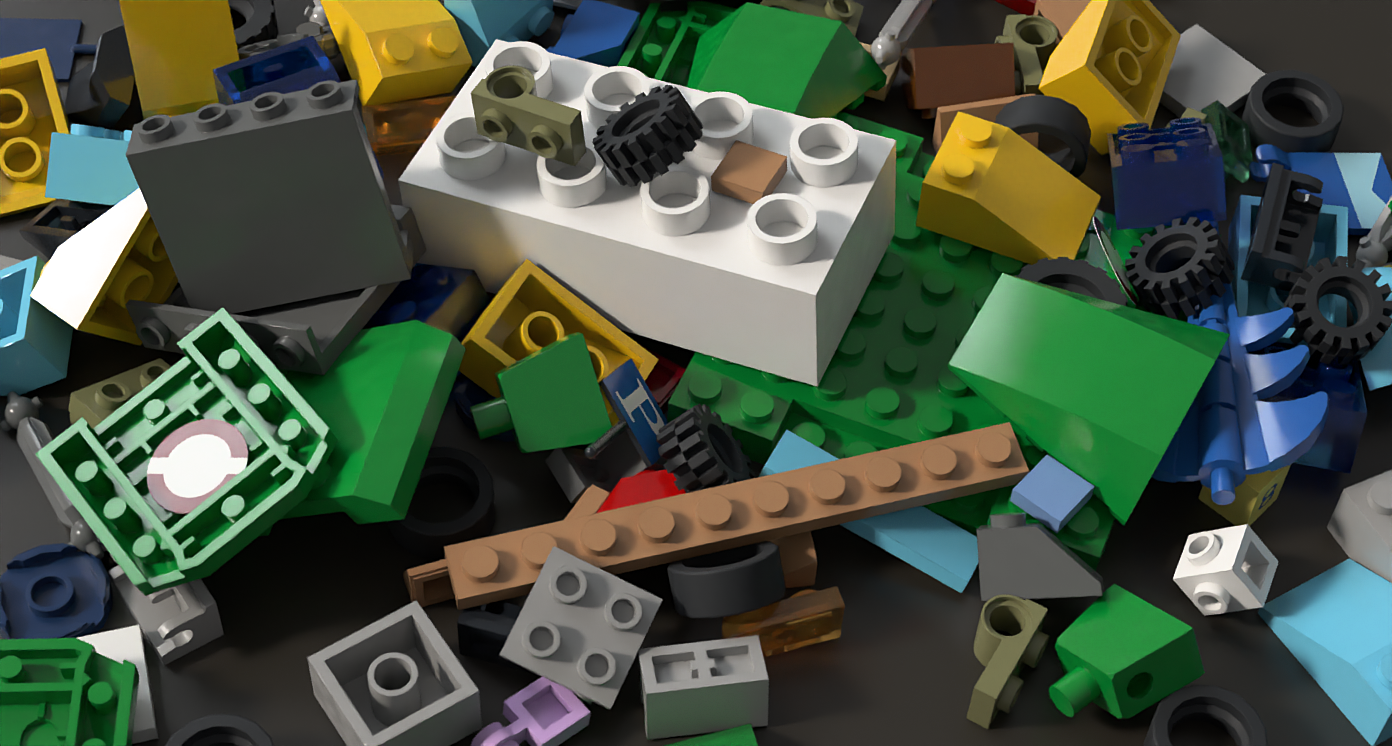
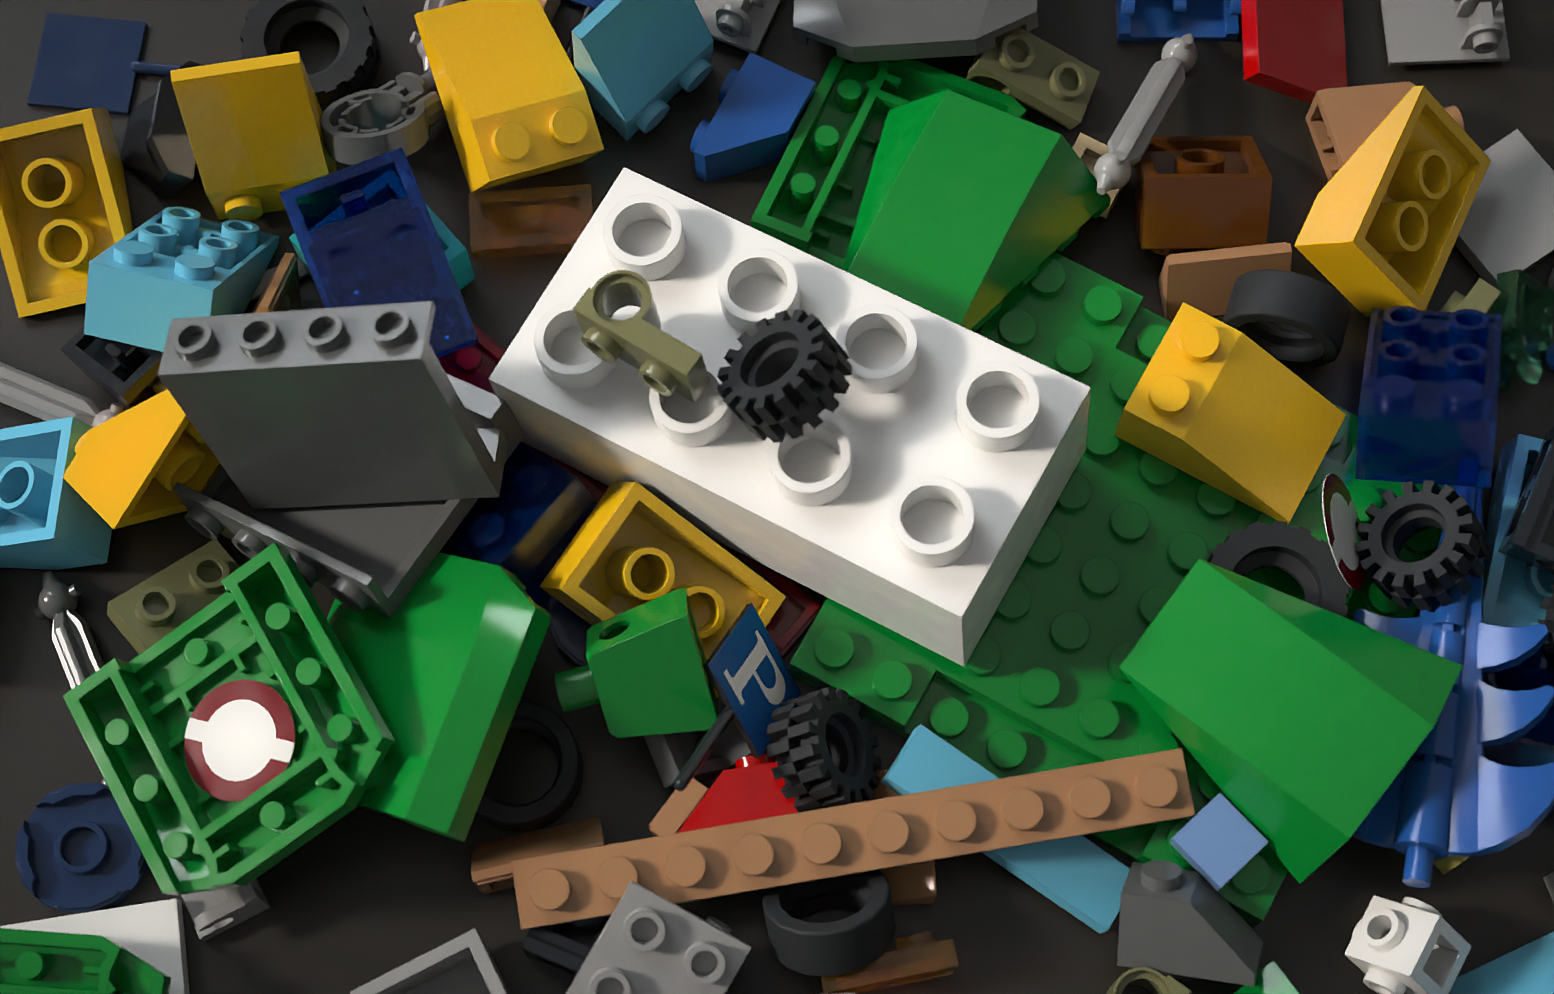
camera: 10 degrees right, 20 degrees up
(748, 172) = (904, 427): medium nougat tile -> none
(1033, 44) = (1290, 178): olive plate -> none

